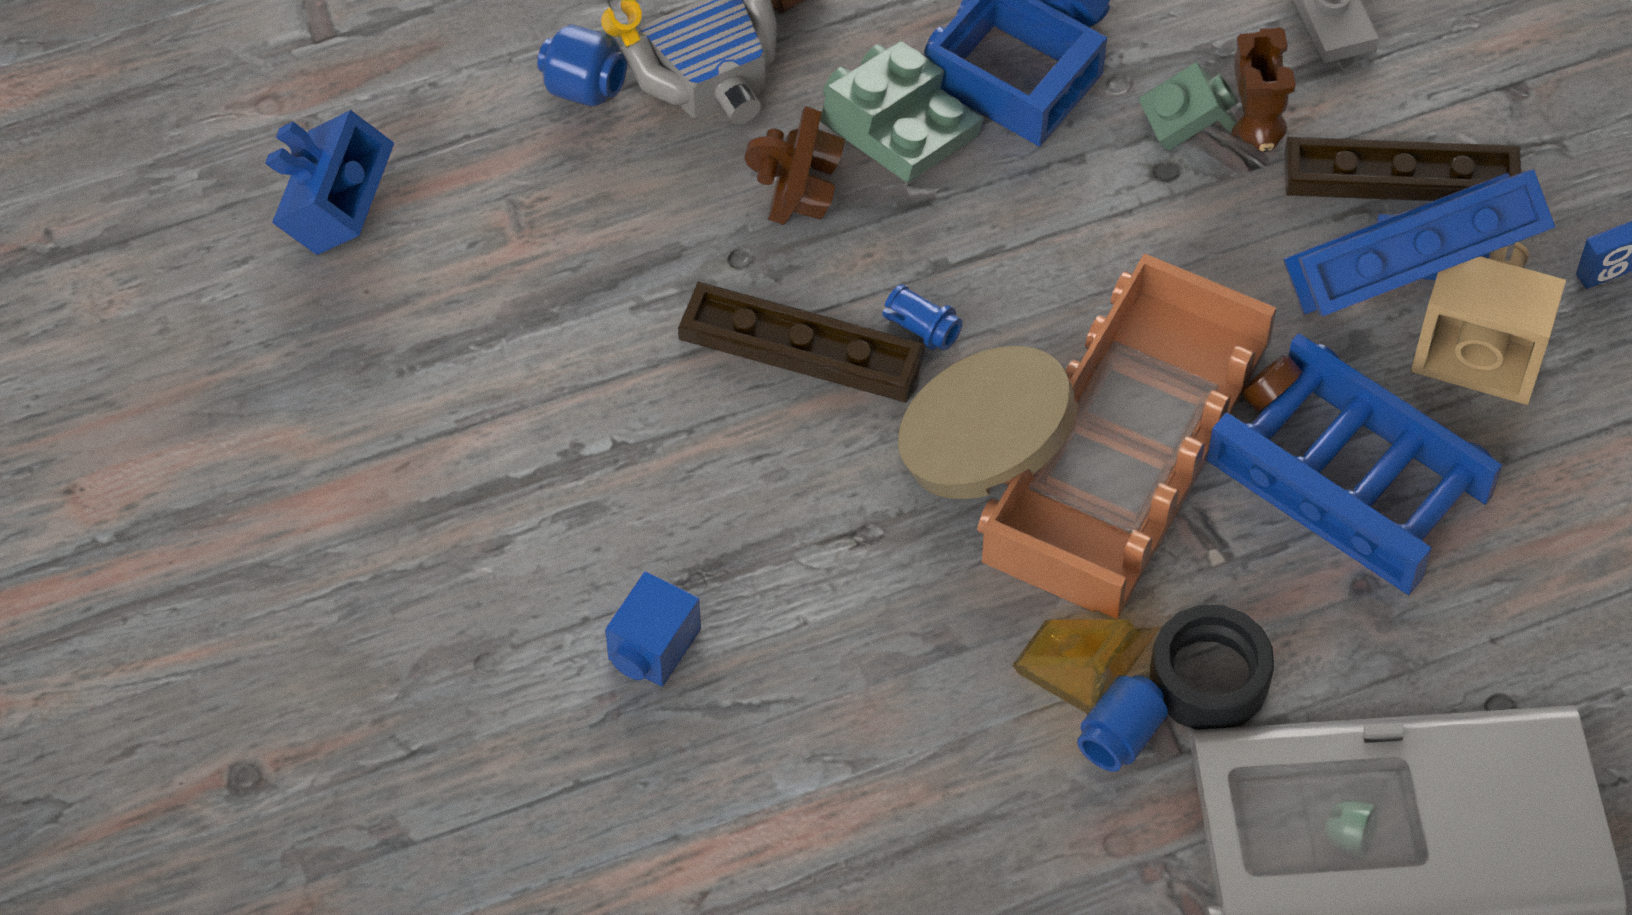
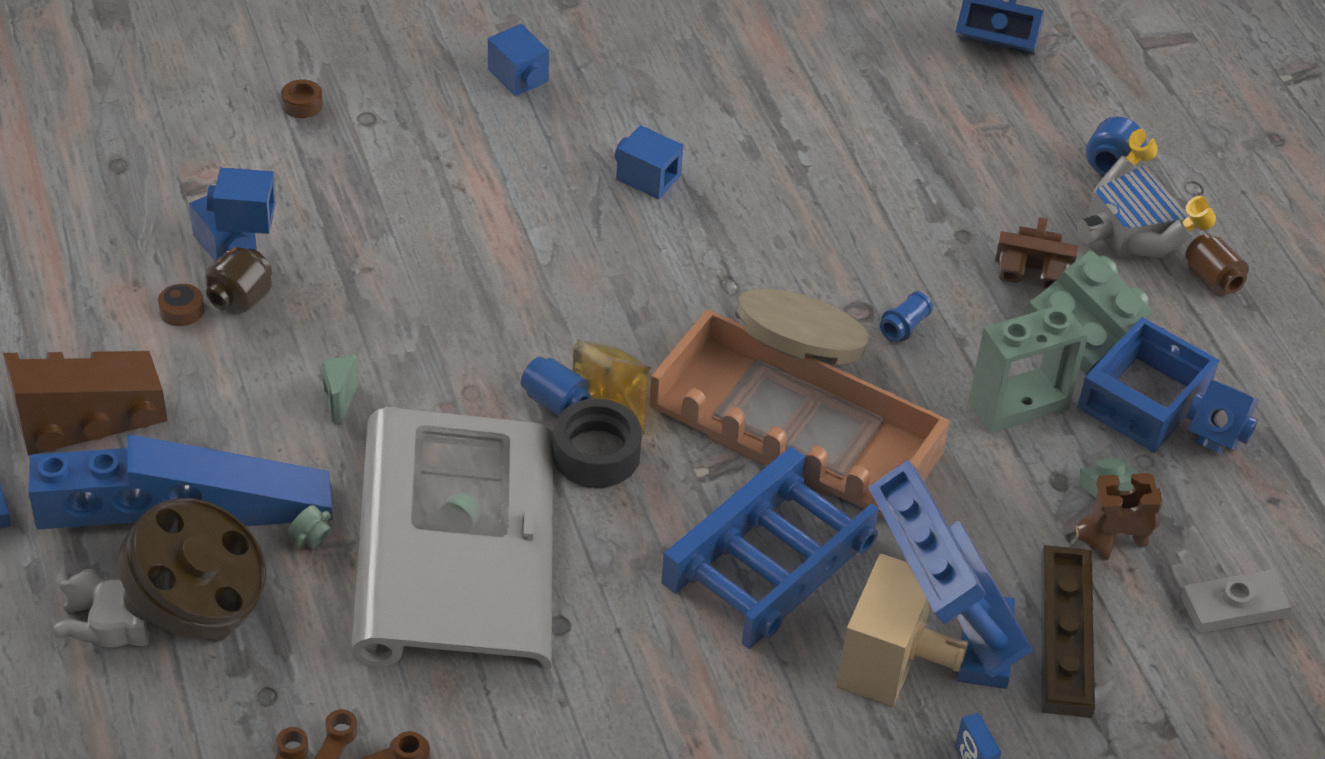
camera: 90 degrees right, 10 degrees down
(431, 822) = (518, 59): none -> blue brick
(801, 341) = (887, 258): dark brown tile -> none
(1047, 167) = (1048, 389): none -> sand green window
(1271, 382) = (843, 500): reddish brown tile -> none

